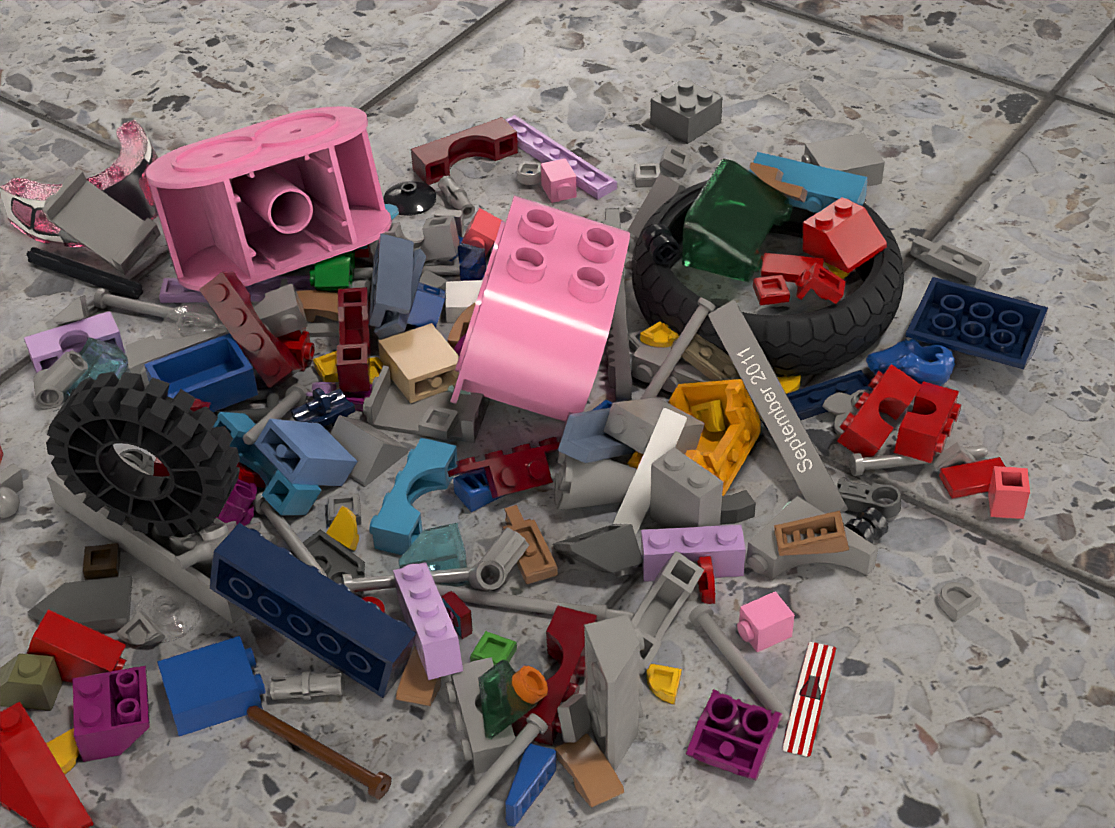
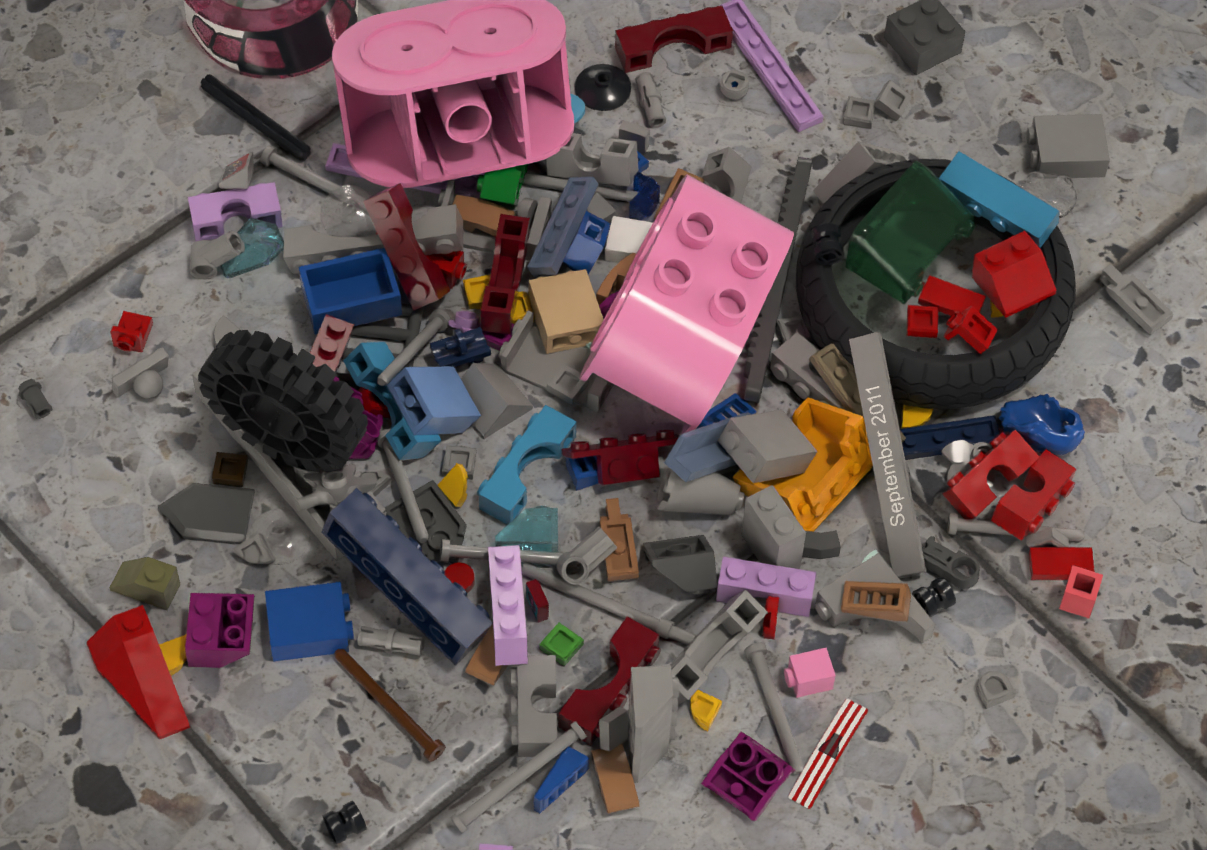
camera: 10 degrees right, 15 degrees up
(75, 647) = (197, 562): red slope -> none
(100, 222) = (280, 66): light grey panel -> none
(391, 278) = (556, 209): sand blue panel -> none
(482, 230) = (663, 159): coral brick -> none
(499, 700) = (555, 700): clear green slope -> none
(529, 684) = (580, 693): orange tile -> none
(558, 180) = (761, 103): bright pink brick -> none
(638, 495) = (761, 477): white sticker -> none
(658, 335) = (804, 338): yellow tile -> none
(679, 347) = (812, 367): light grey bar -> none
(710, 414) = (828, 438): yellow tile -> none
(773, 177) = (960, 193): medium nougat slope -> none
(978, 323) = (1125, 394): dark blue slope -> none

